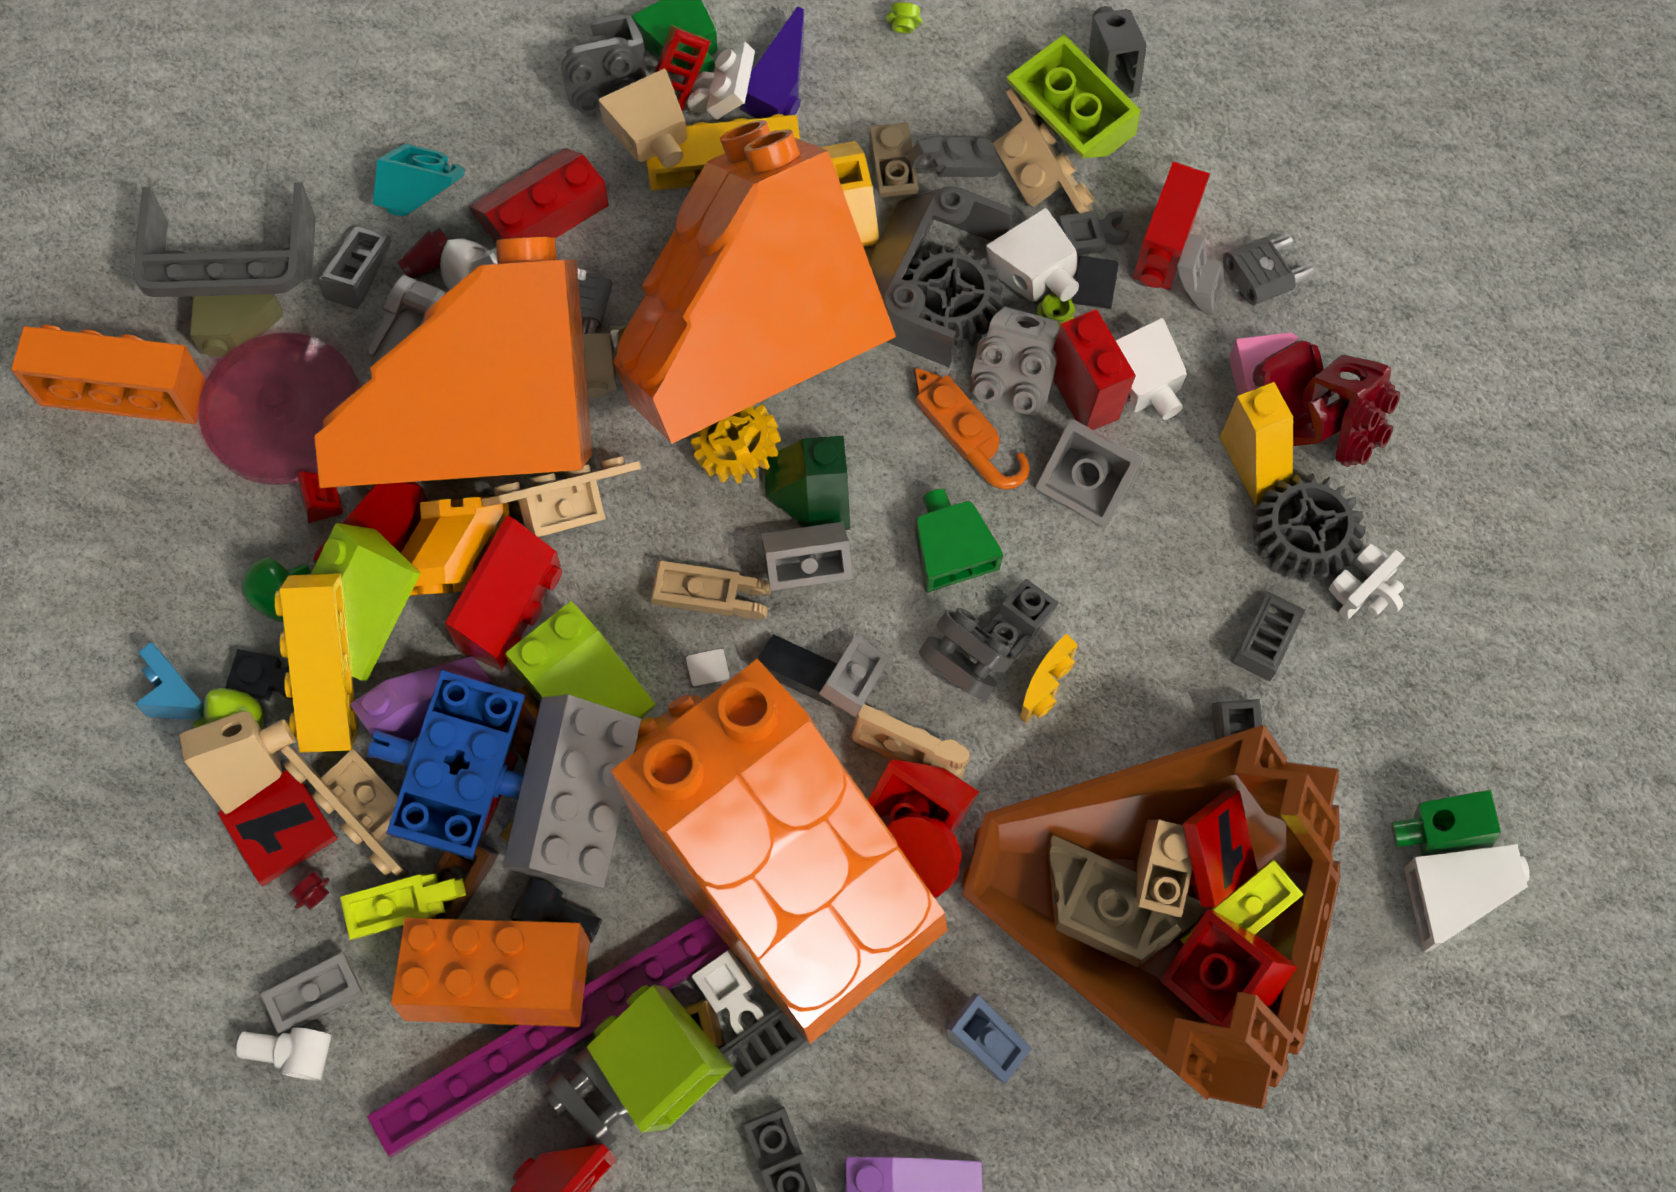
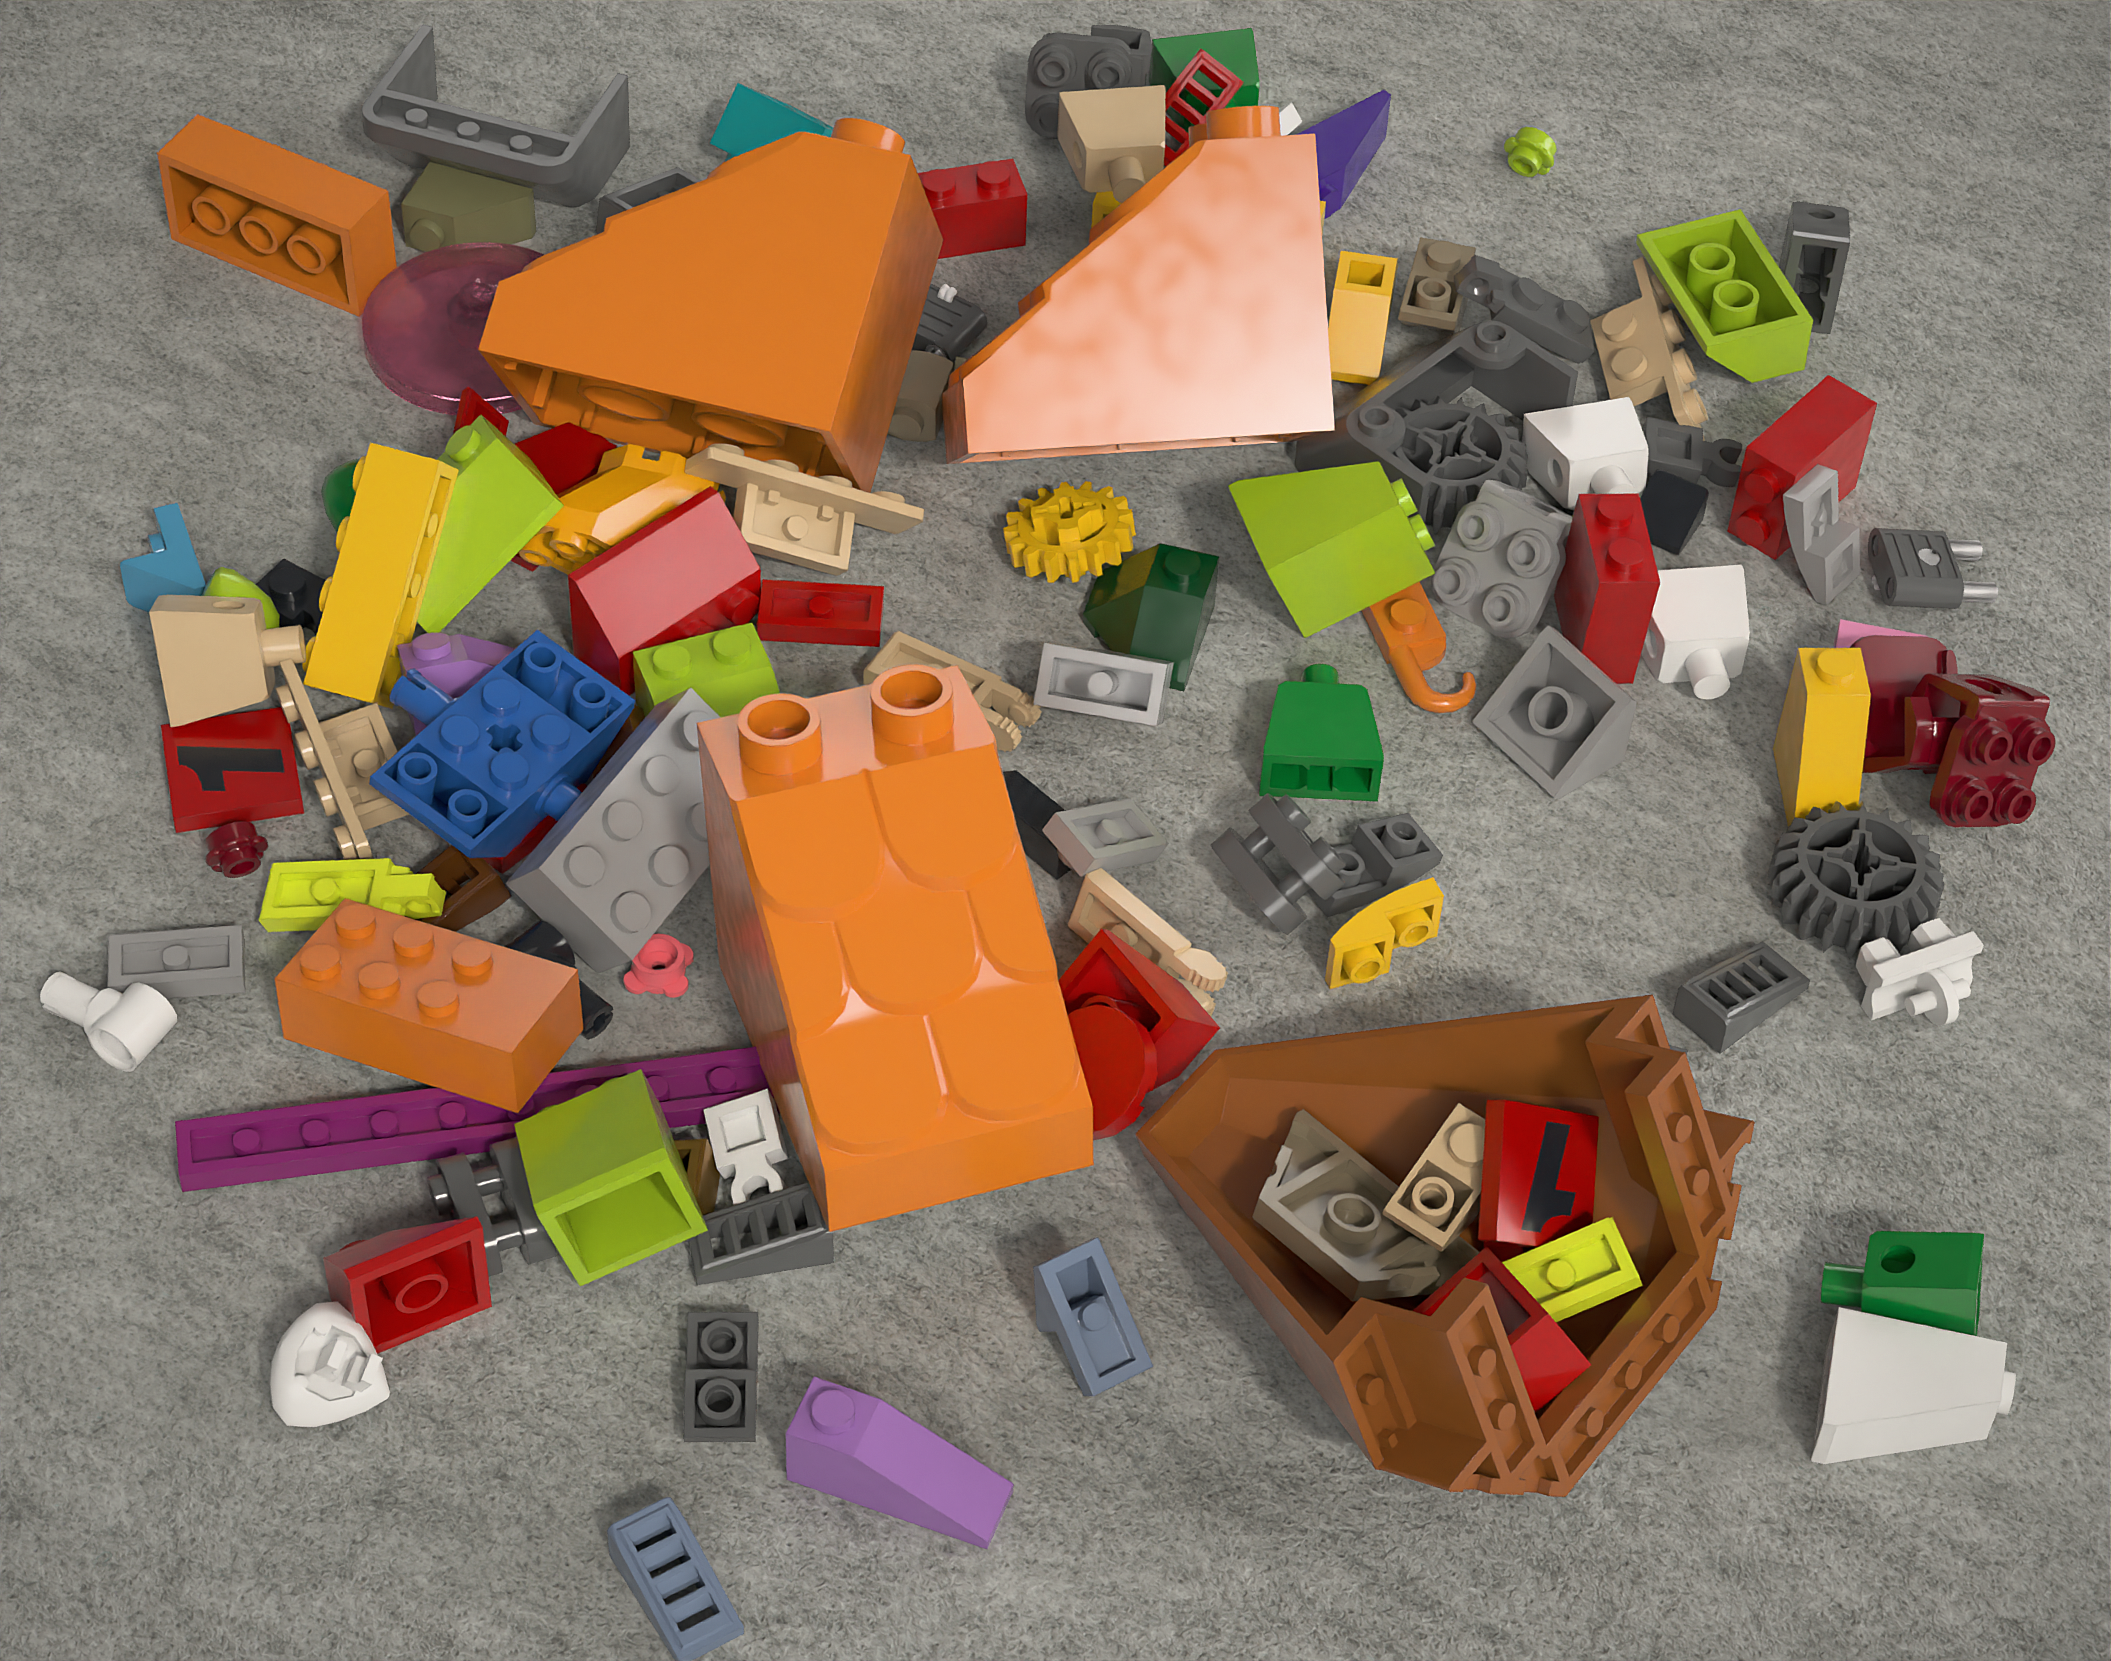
camera: 20 degrees right, 20 degrees down
(603, 561) = (820, 613): none -> red plate
(626, 880) = (664, 953): none -> coral plate
(909, 399) = (1334, 539): none -> lime slope

